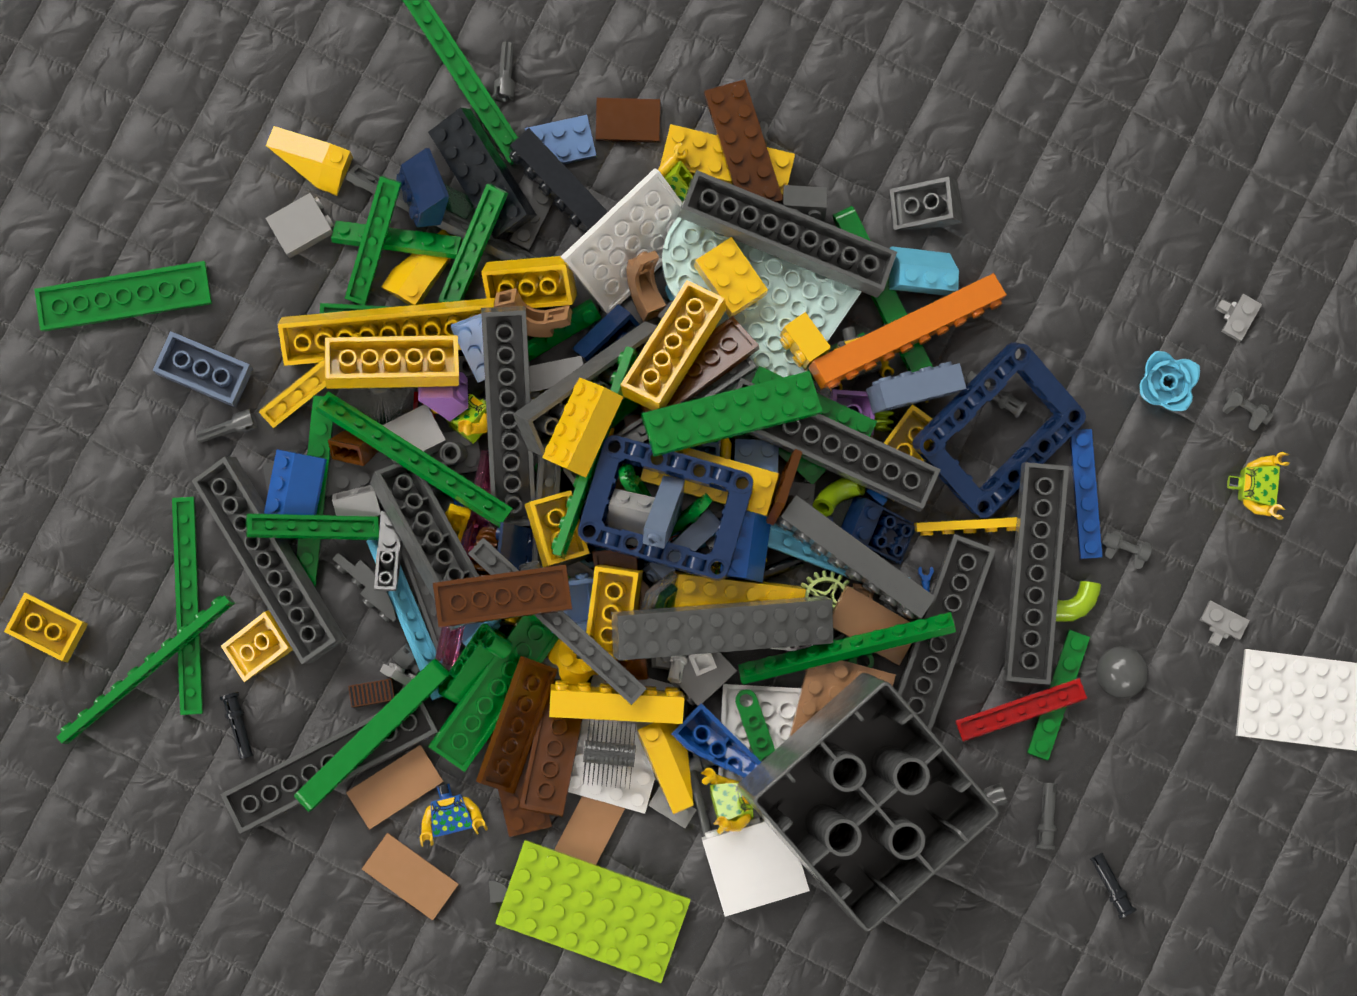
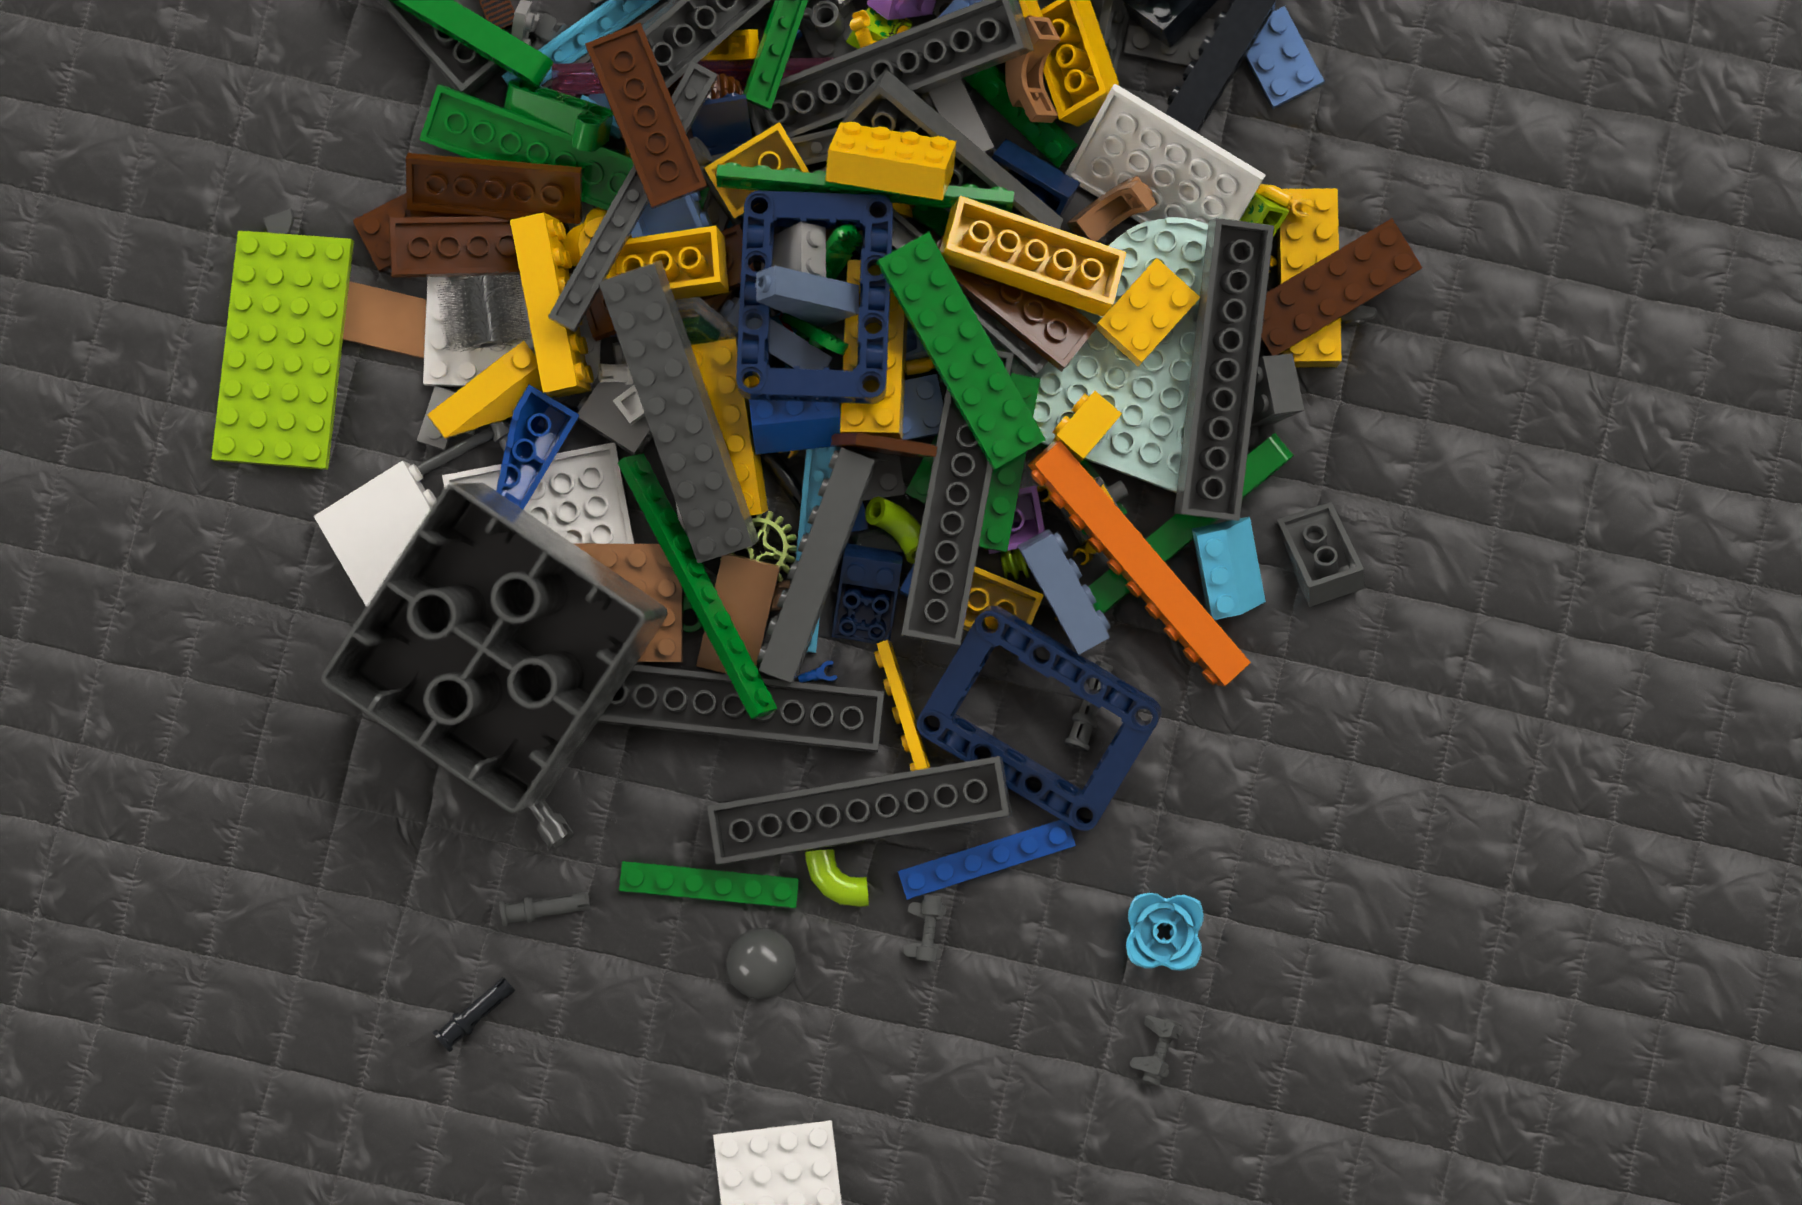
camera: 80 degrees right, 0 degrees up
(395, 787) = (382, 61): medium nougat tile -> none
(410, 876) = (273, 110): medium nougat tile -> none
(450, 815) = (360, 137): torso -> none
(627, 120) = (1332, 136): reddish brown tile -> none
(730, 806) = (467, 470): torso -> none
(755, 726) = (570, 494): green plate -> none
(1021, 709) = (676, 838): red tile -> none
(1223, 623) = (859, 1082): light grey hinge -> none
(1238, 316) = (1281, 1009): light grey hinge -> none
(1259, 485) = (1056, 1087): torso -> none

